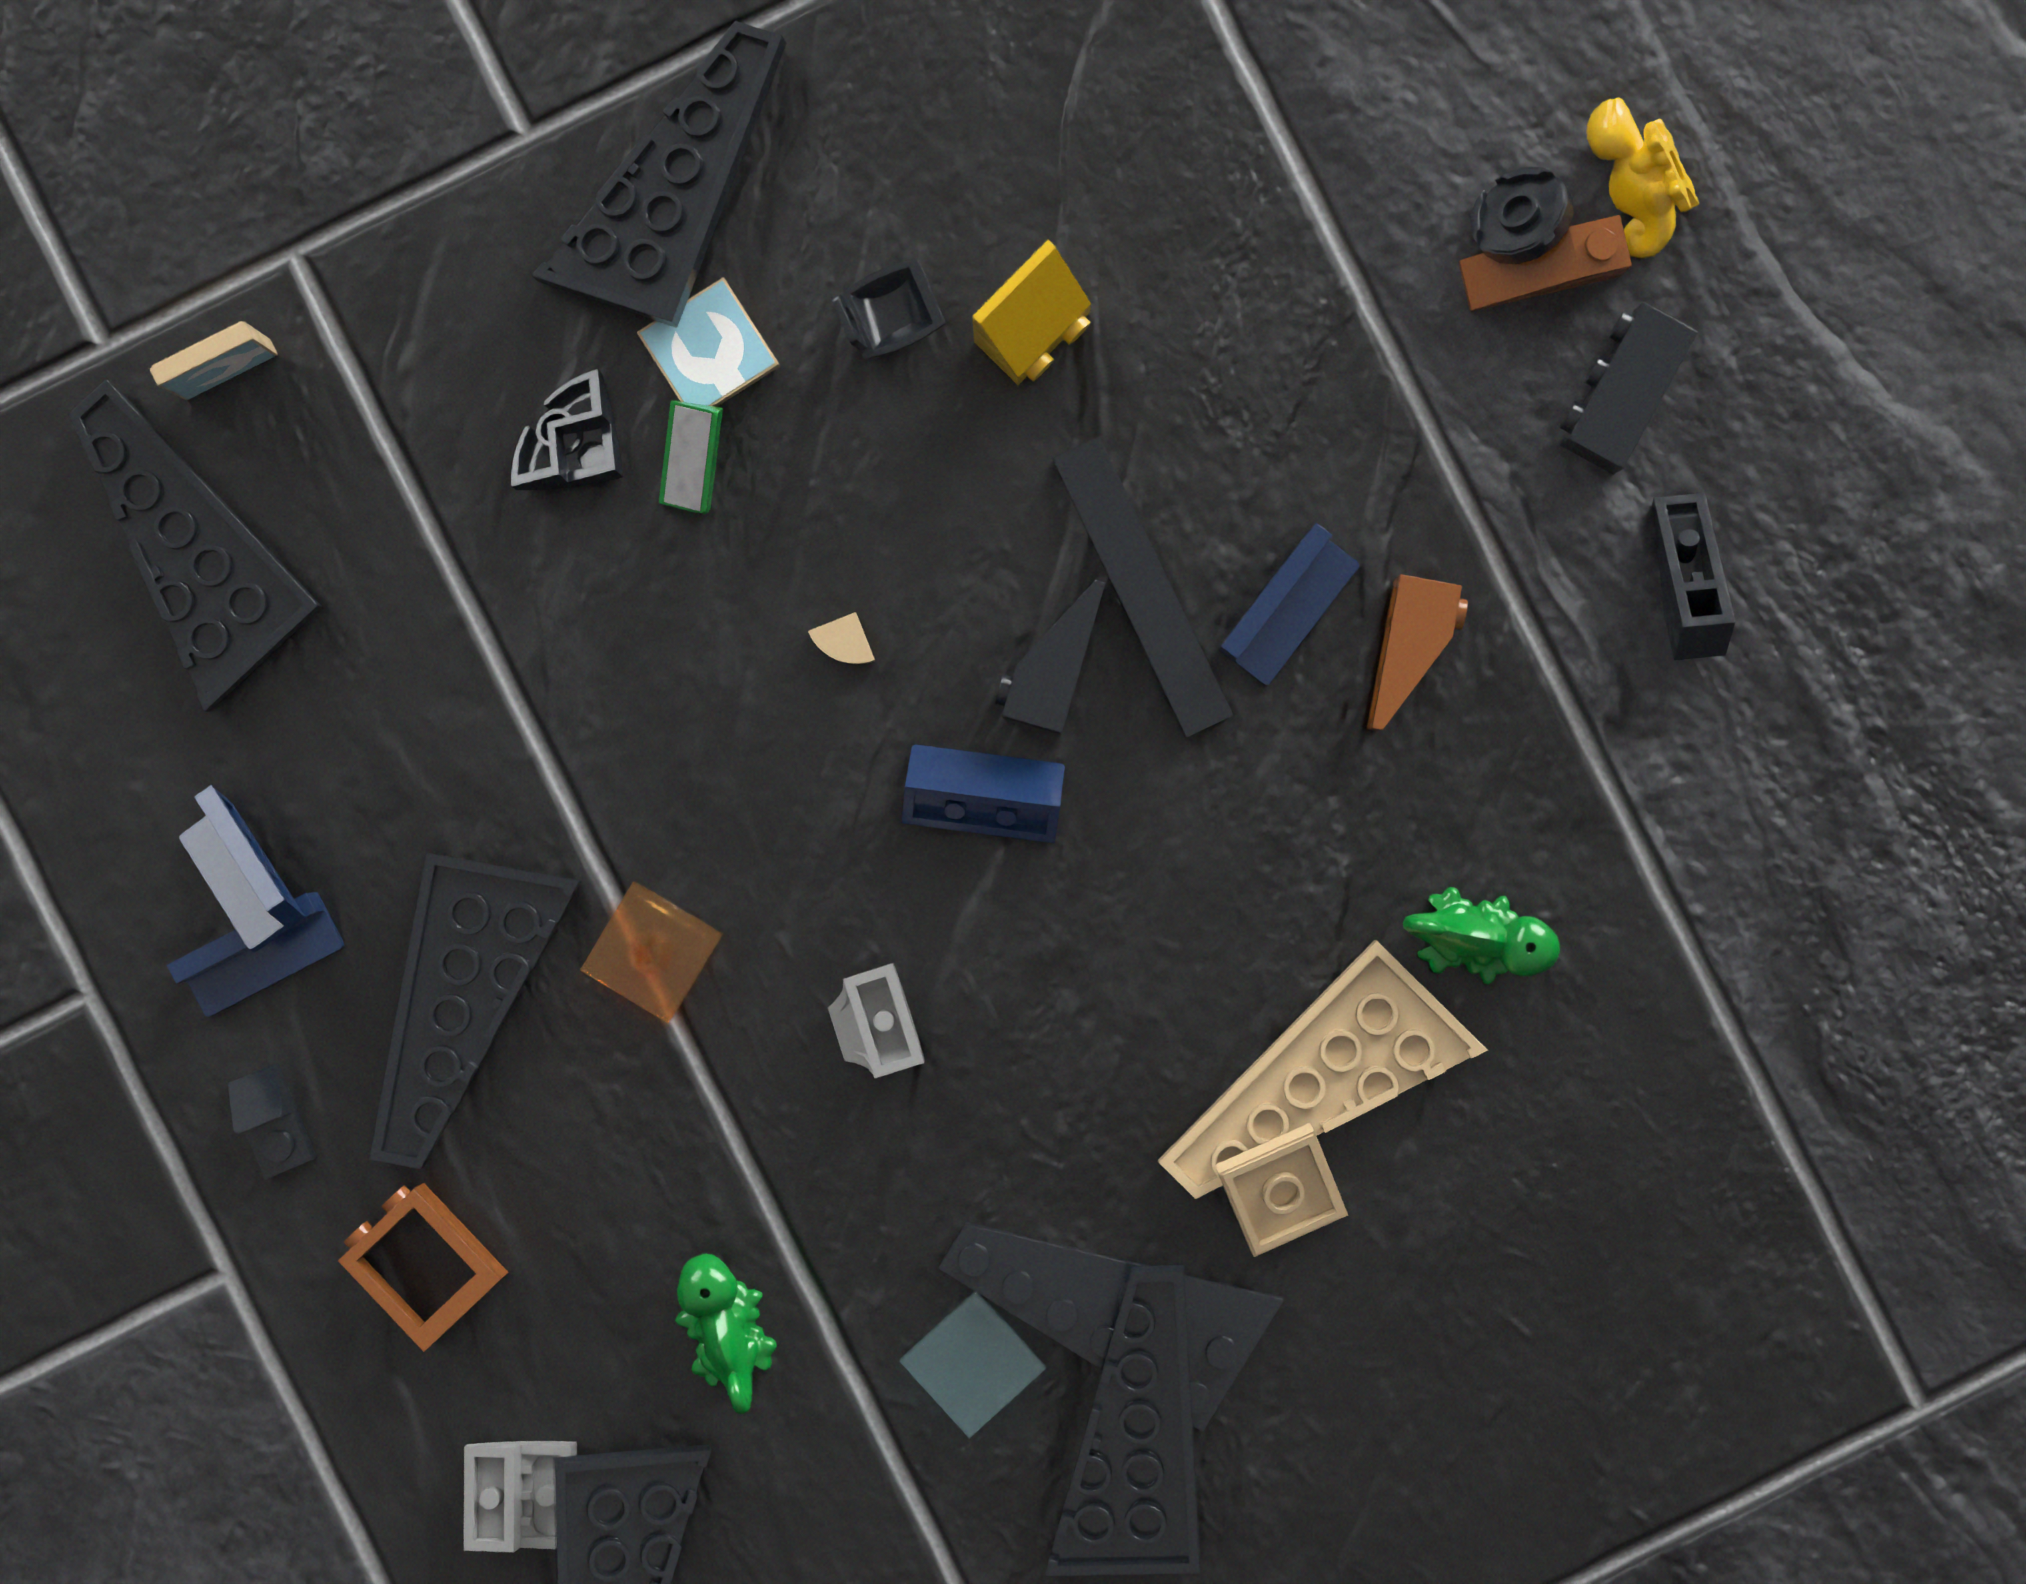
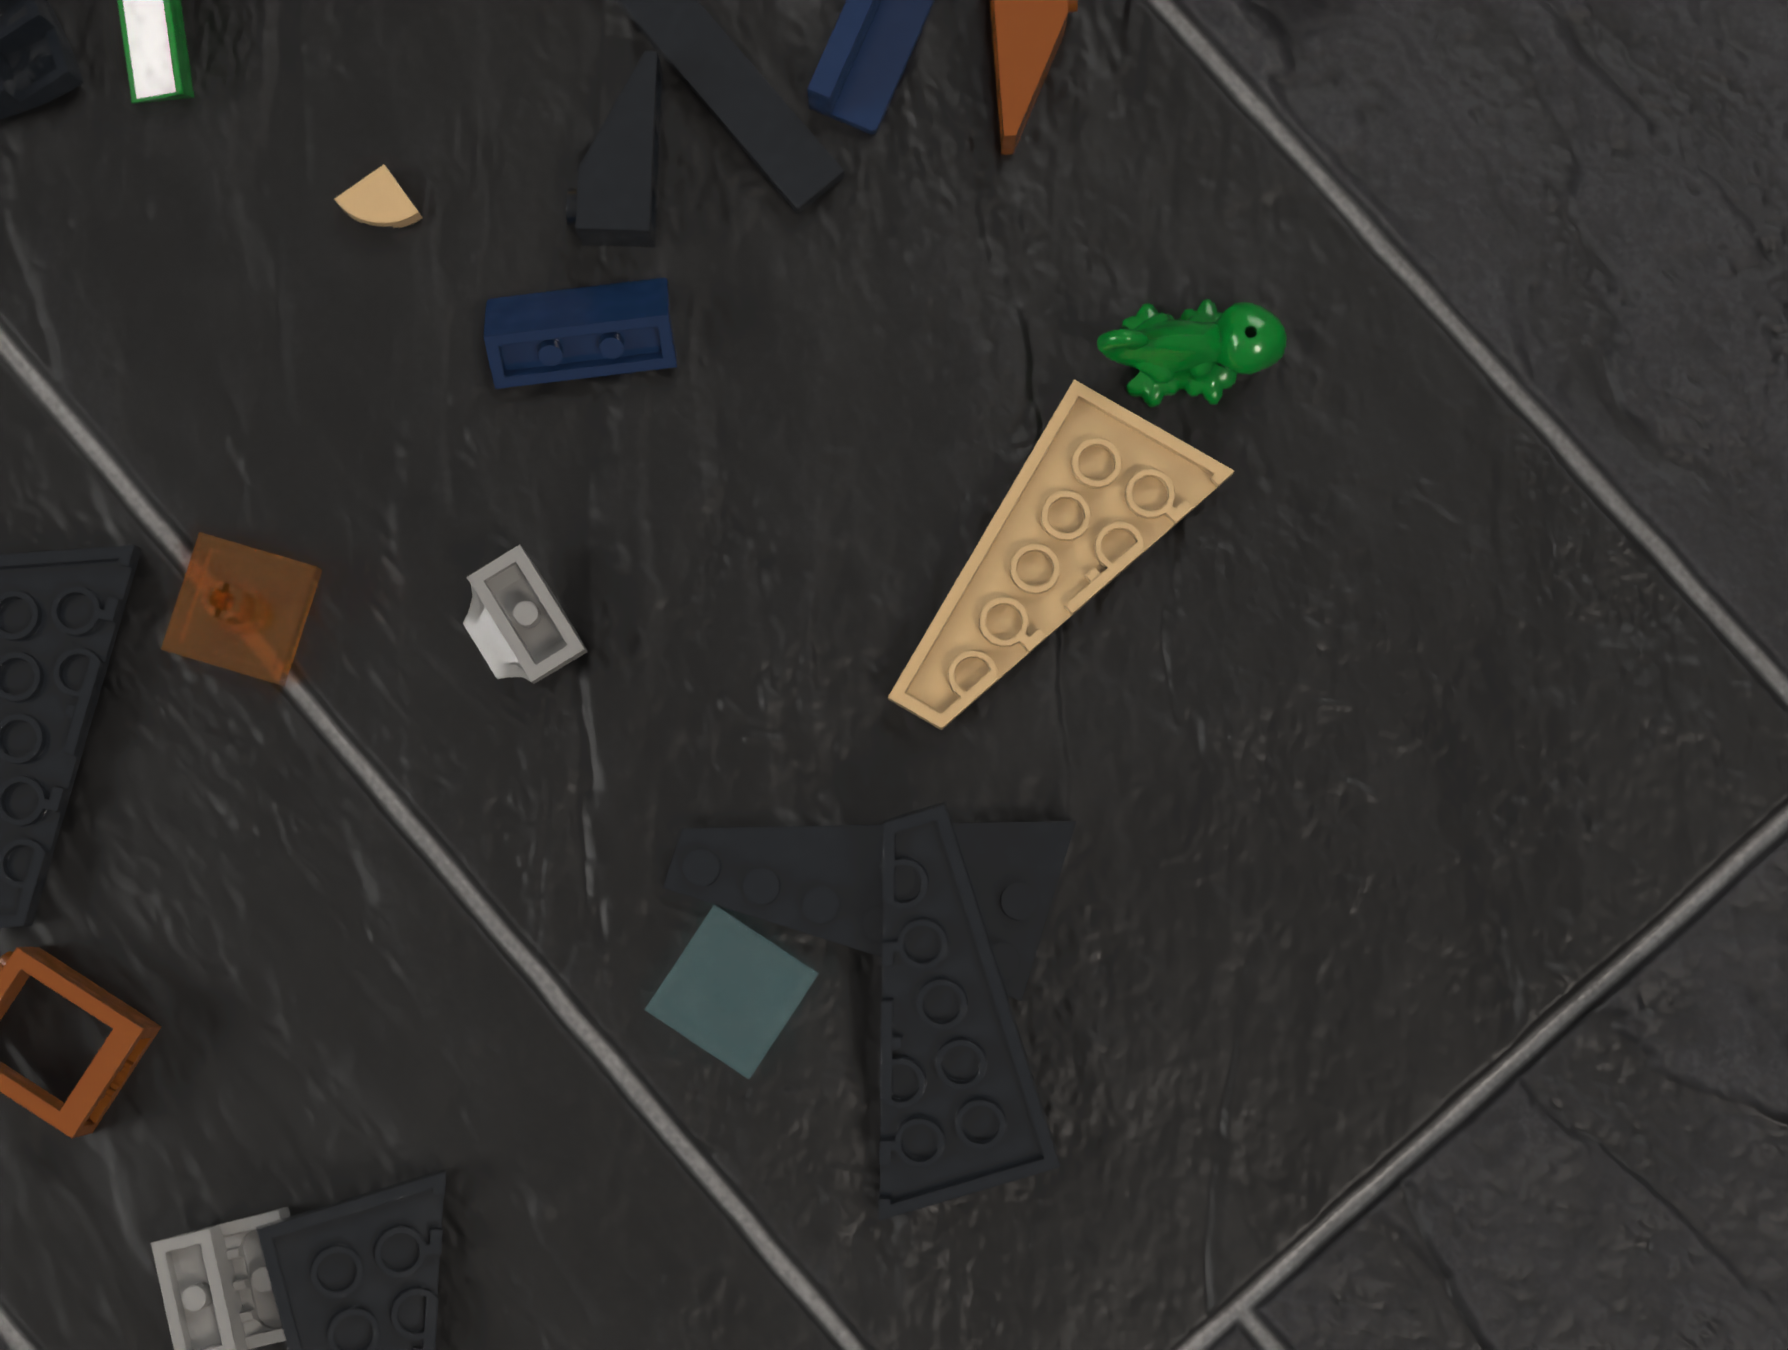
camera: 10 degrees left, 5 degrees down
(723, 1320) = (428, 1025): green animal -> none
(1281, 1190) = (1039, 692): tan tile -> none

